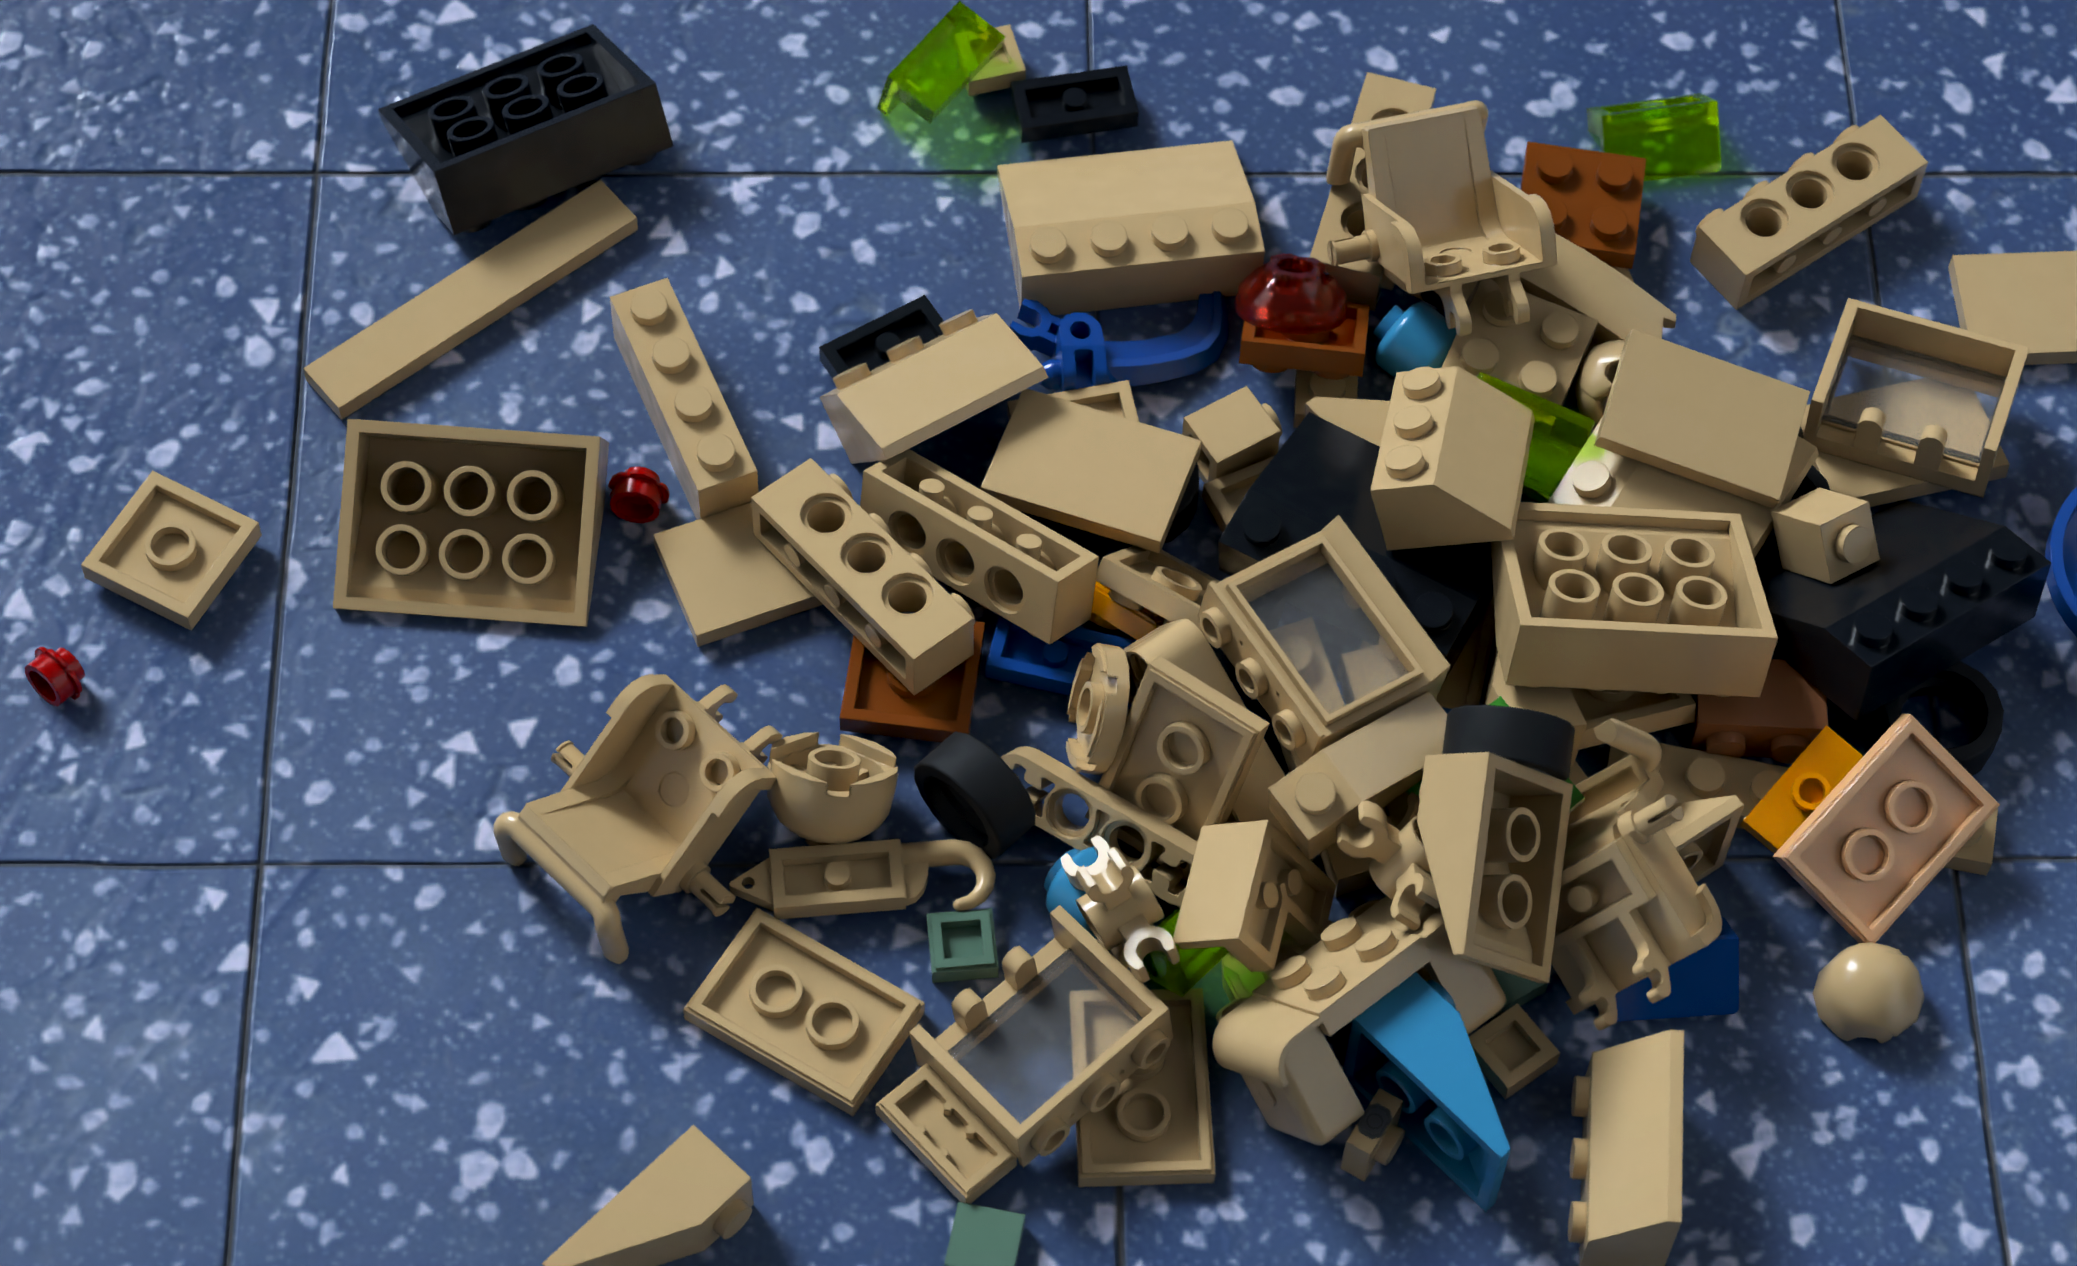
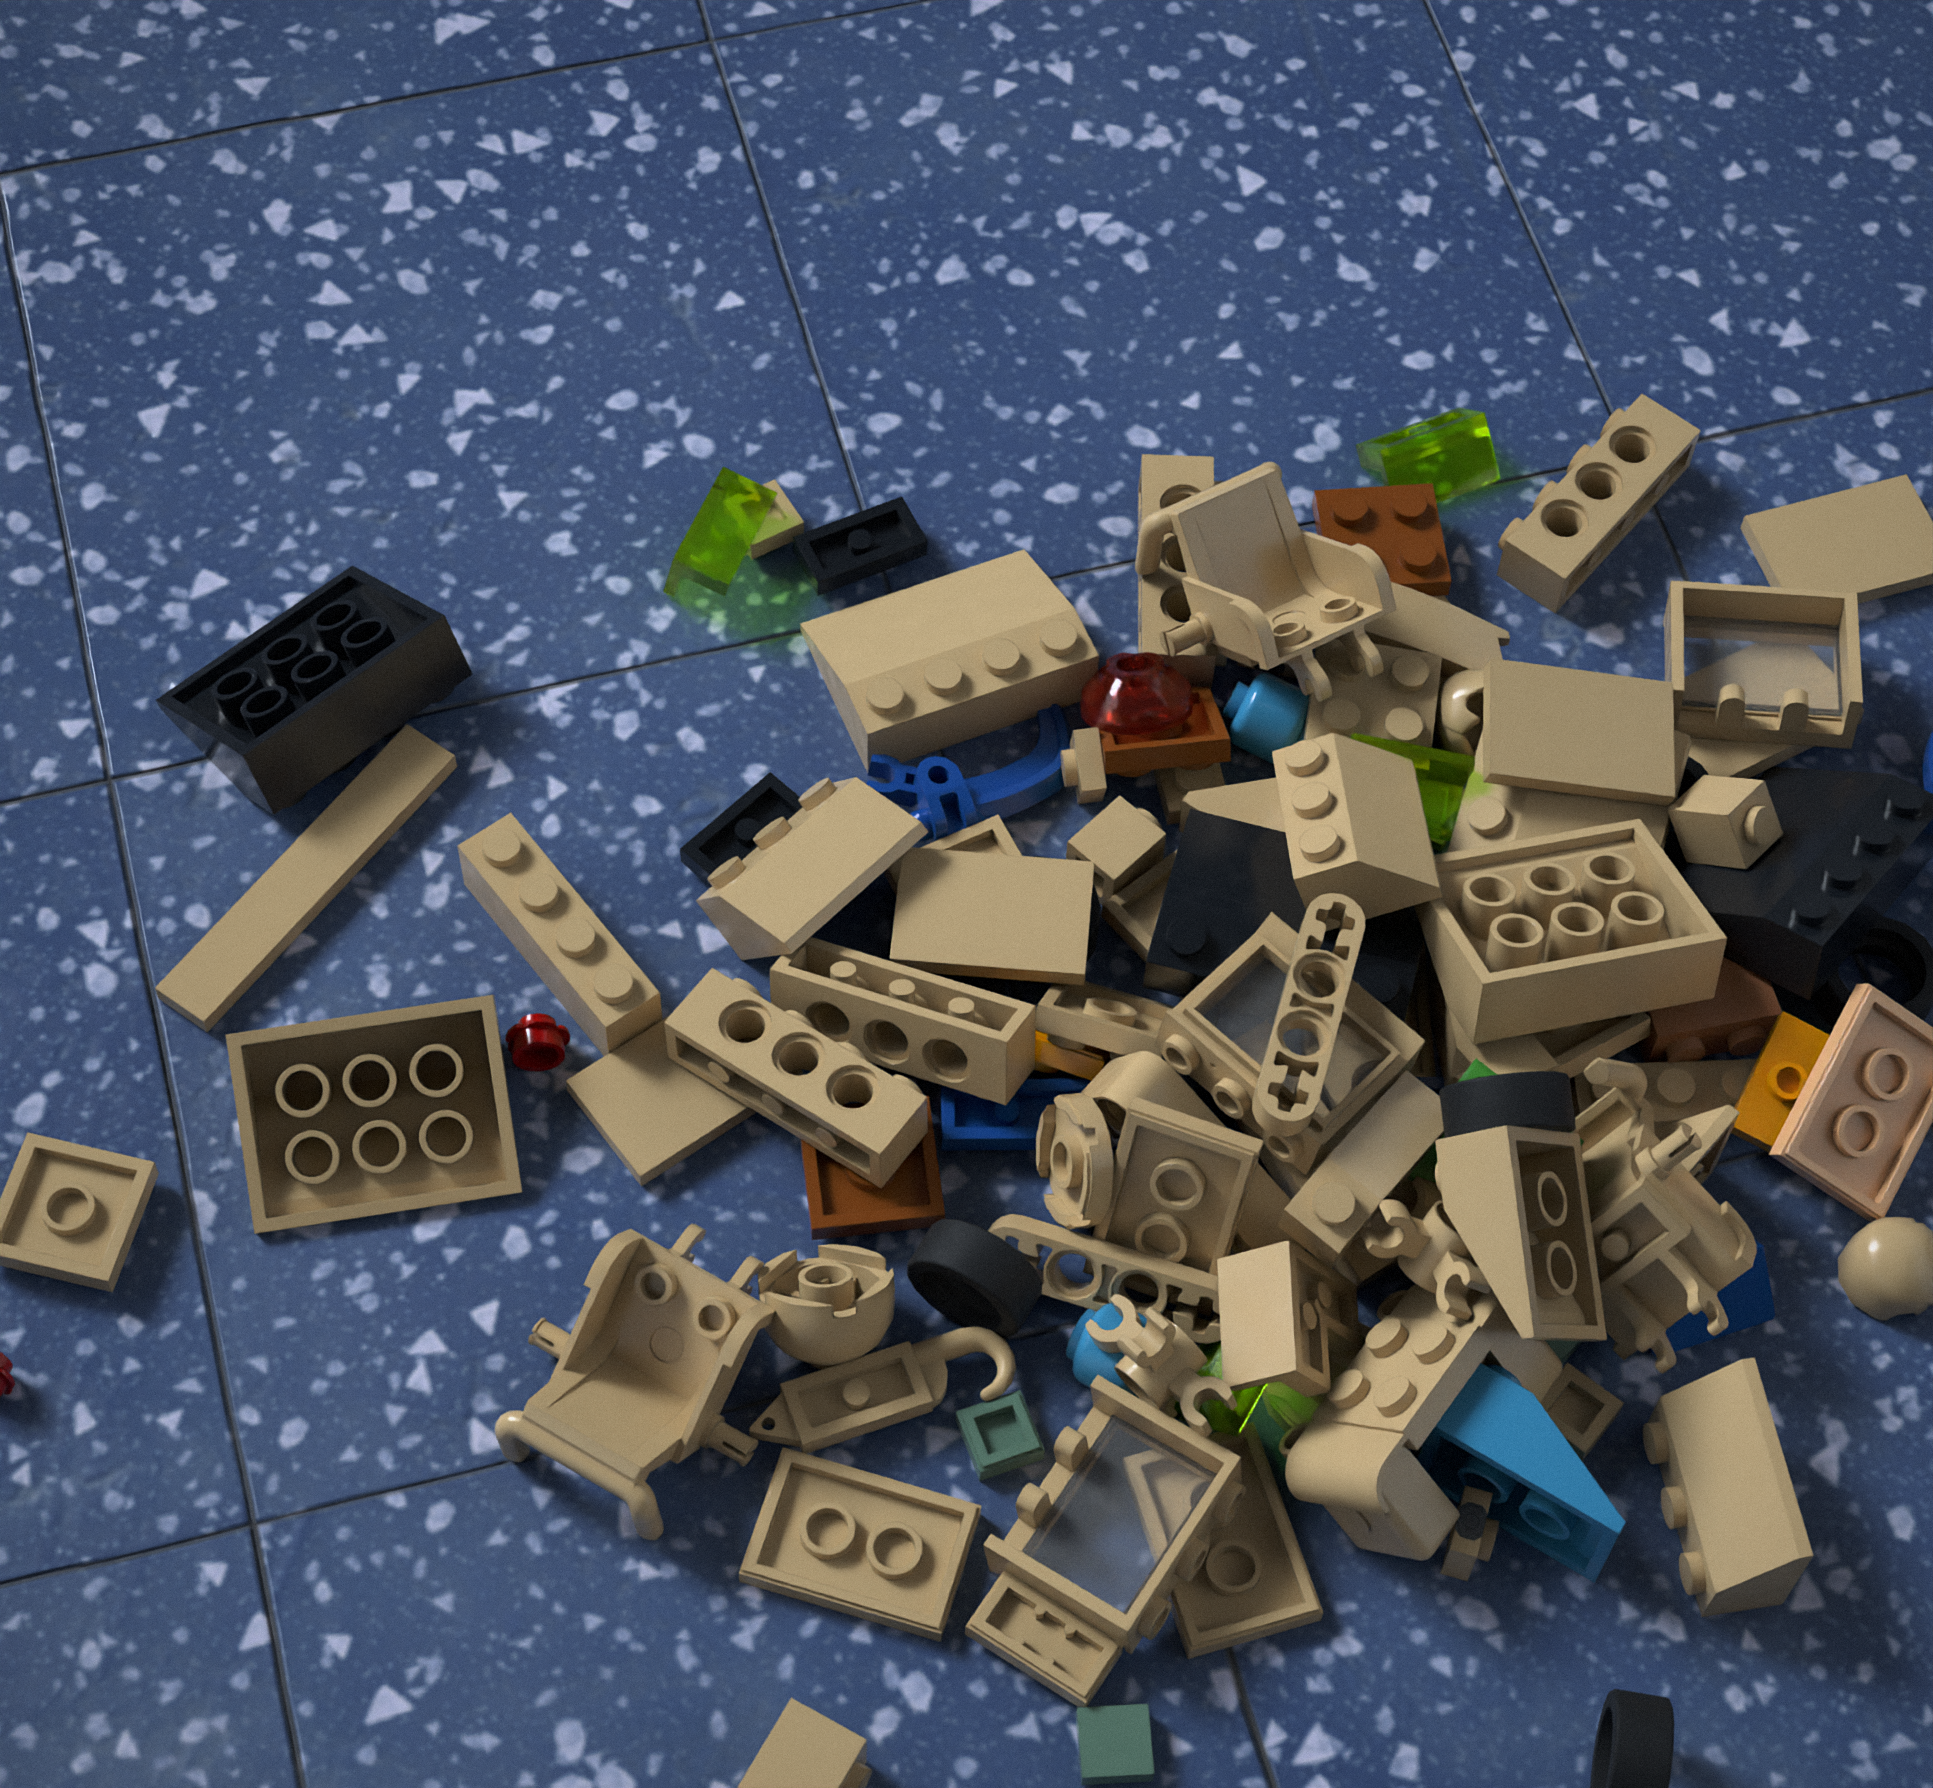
camera: 15 degrees left, 0 degrees up
(1222, 353) = (1084, 766): none -> tan plate
(1338, 611) = (1310, 1013): none -> tan beam

